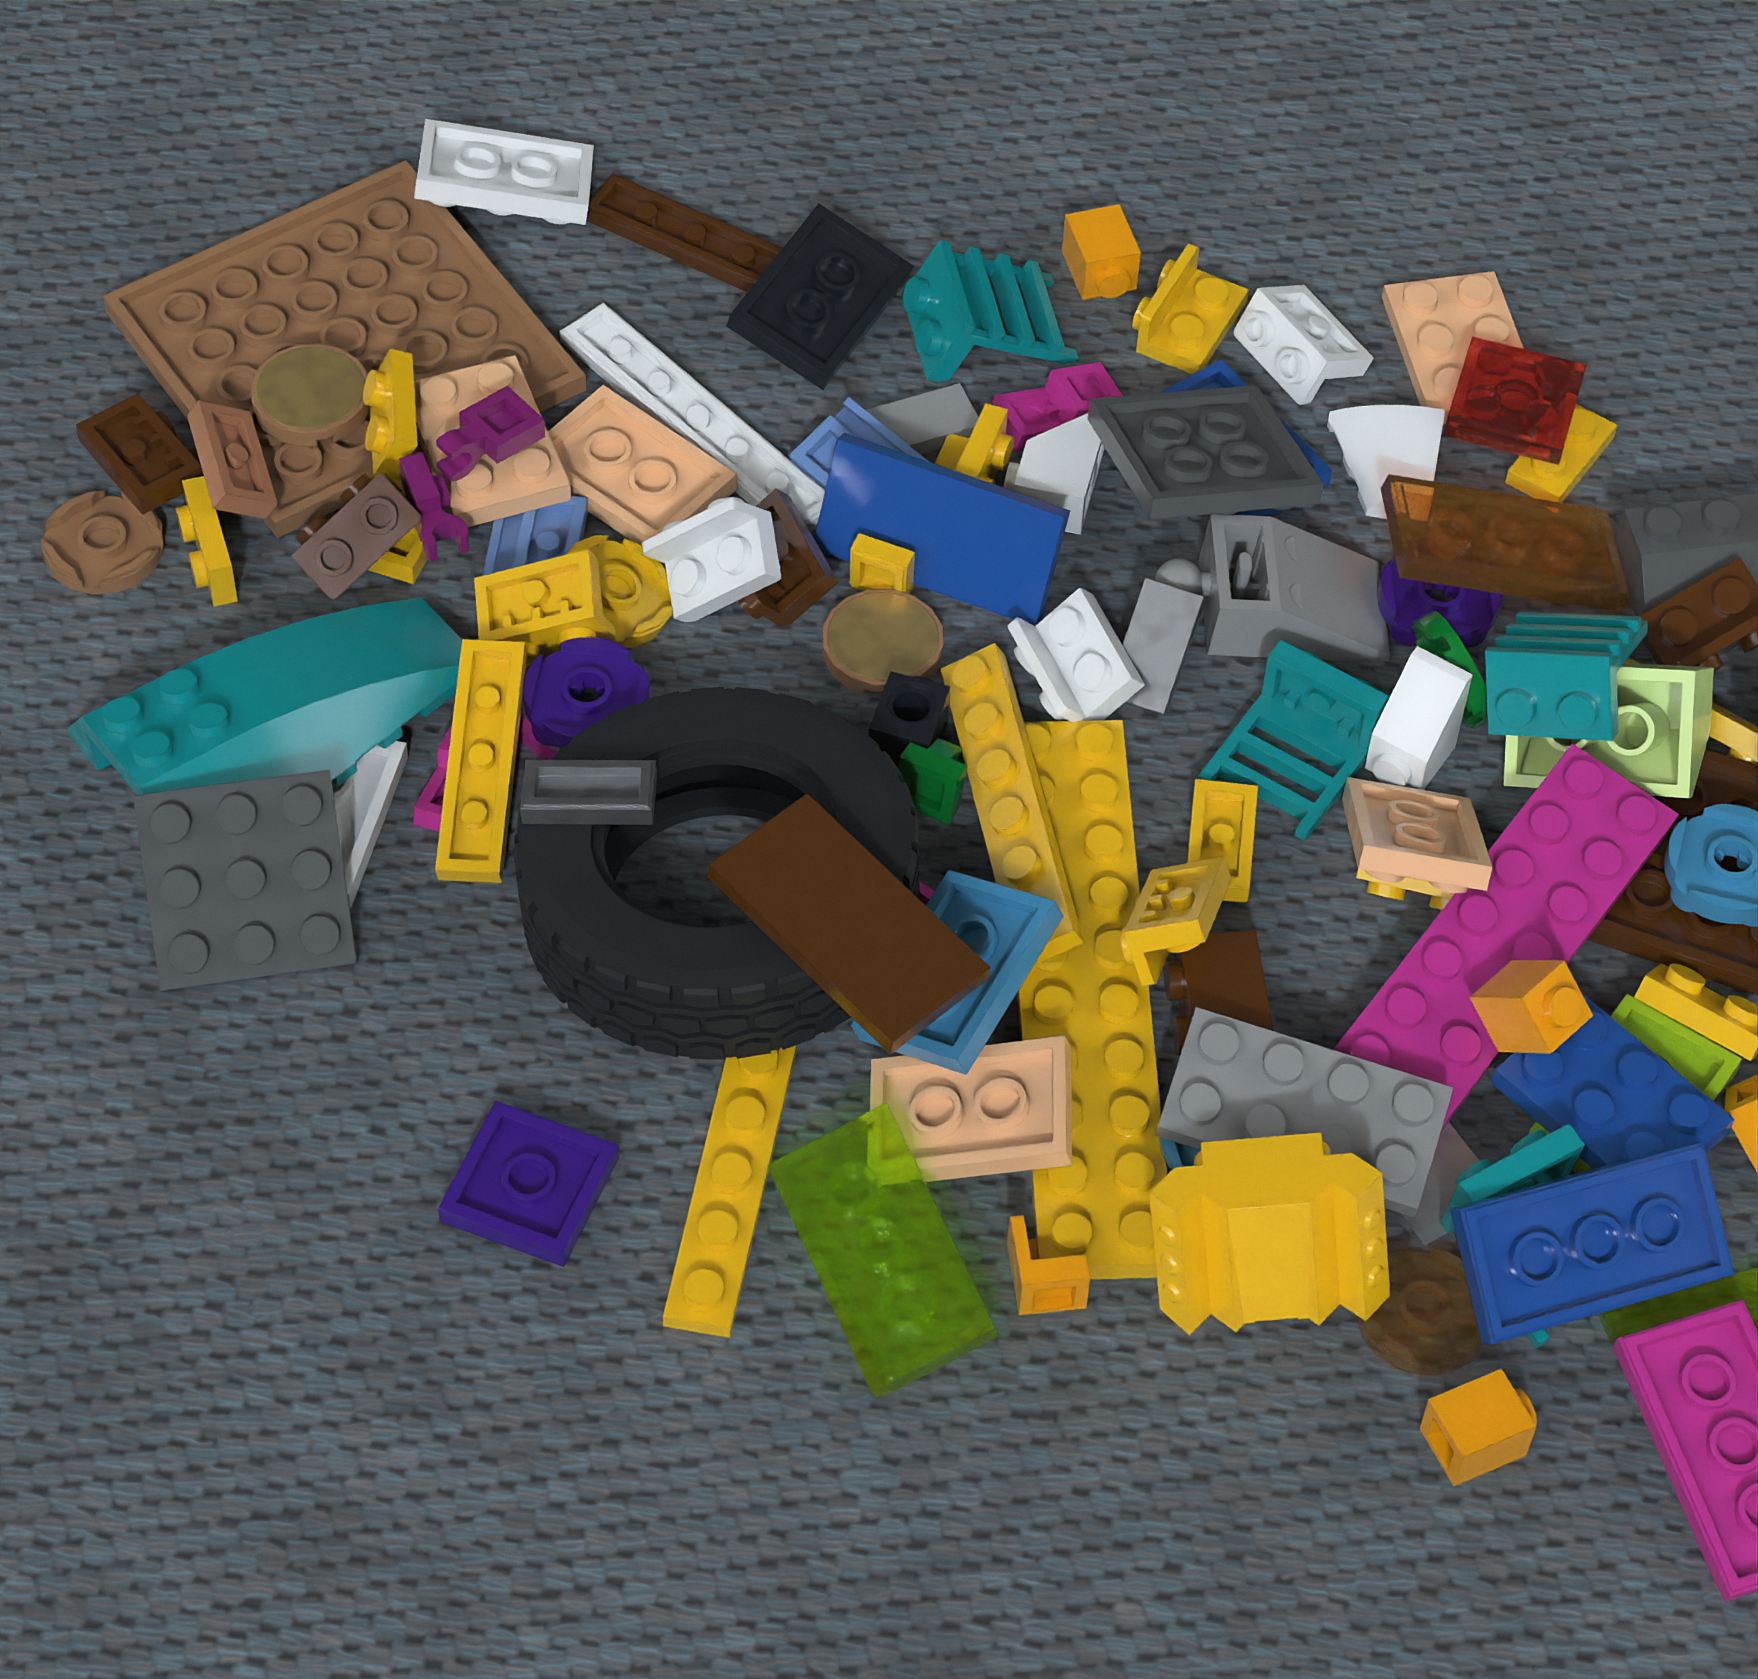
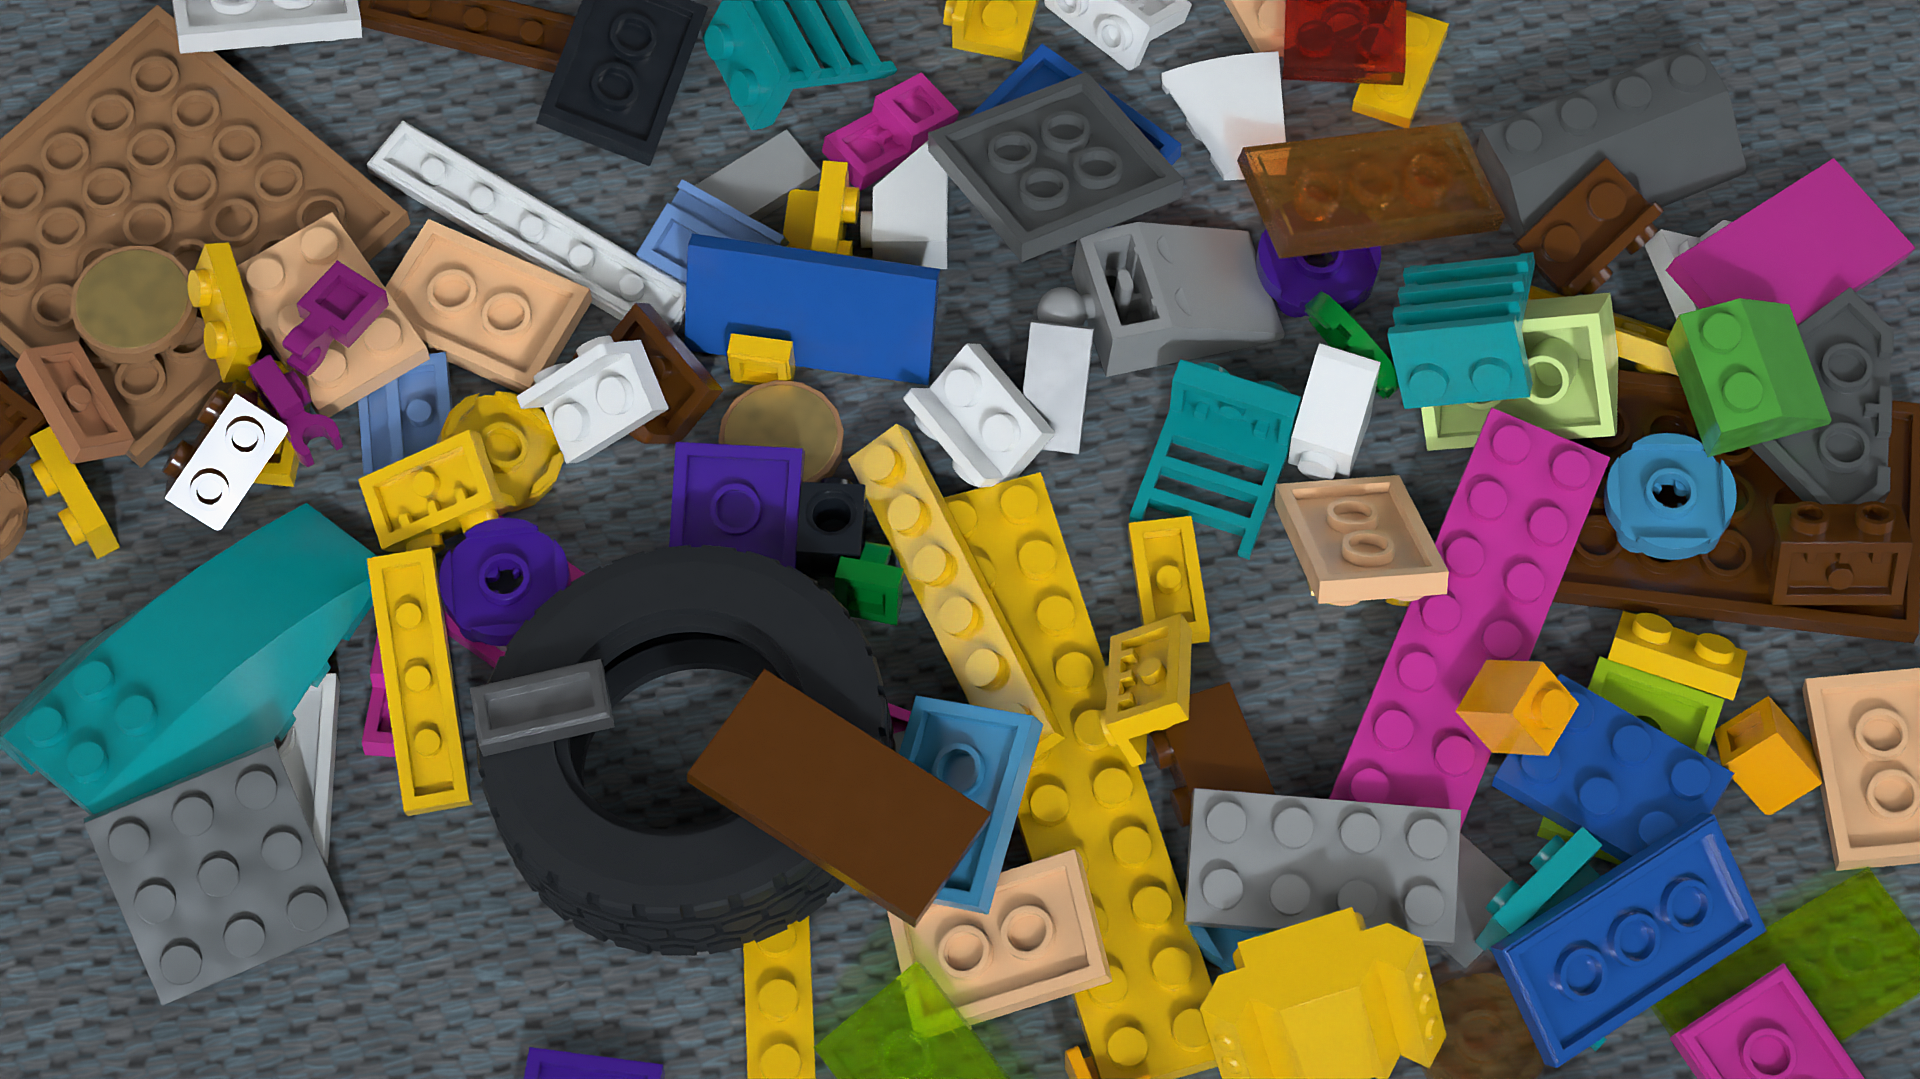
camera: 10 degrees left, 10 degrees up
(829, 666) = (737, 498): none -> dark purple plate

